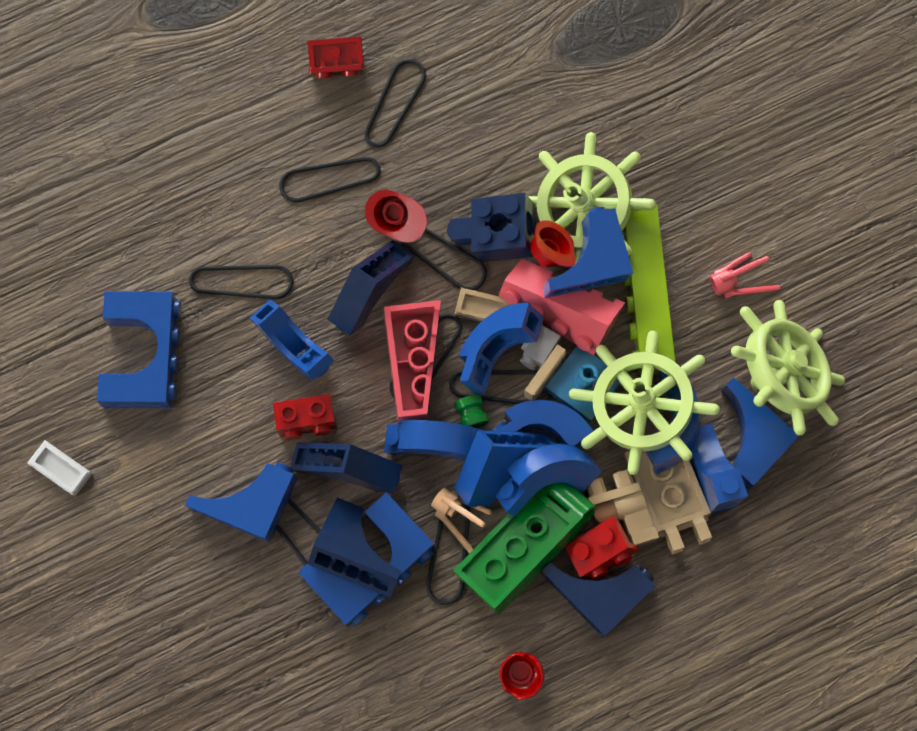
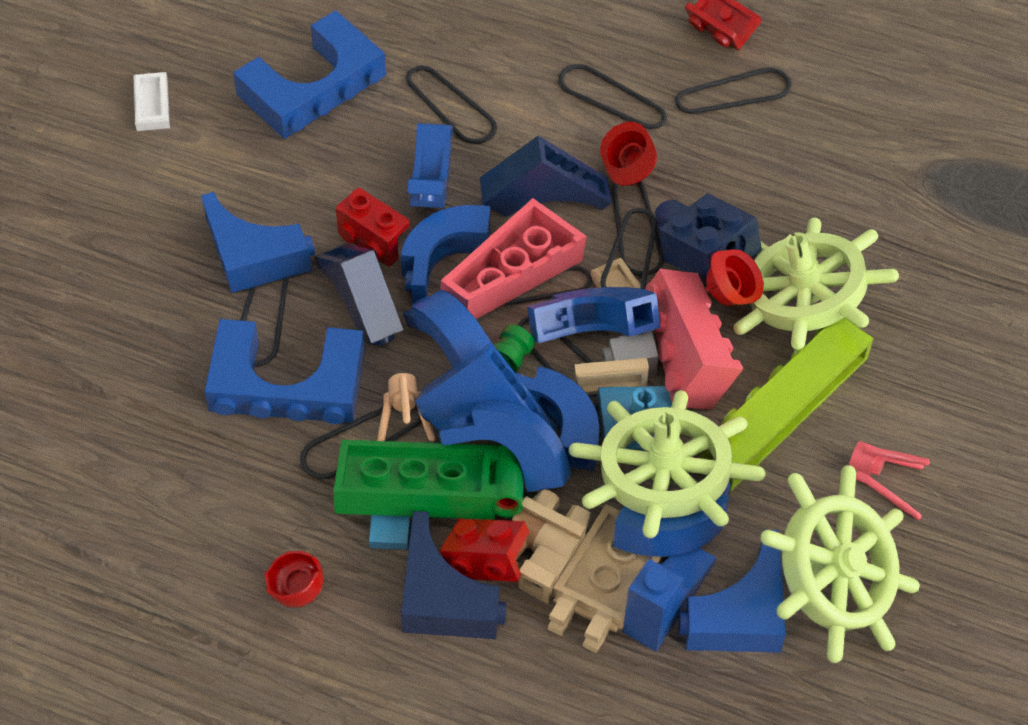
camera: 45 degrees right, 20 degrees down
(346, 554) = (272, 330): dark blue arch -> none
(349, 374) = (439, 236): none -> blue arch
(432, 251) = (618, 239): none -> black piece
(534, 592) = (389, 532): none -> dark azure tile
(602, 257) = (752, 316): blue arch -> none

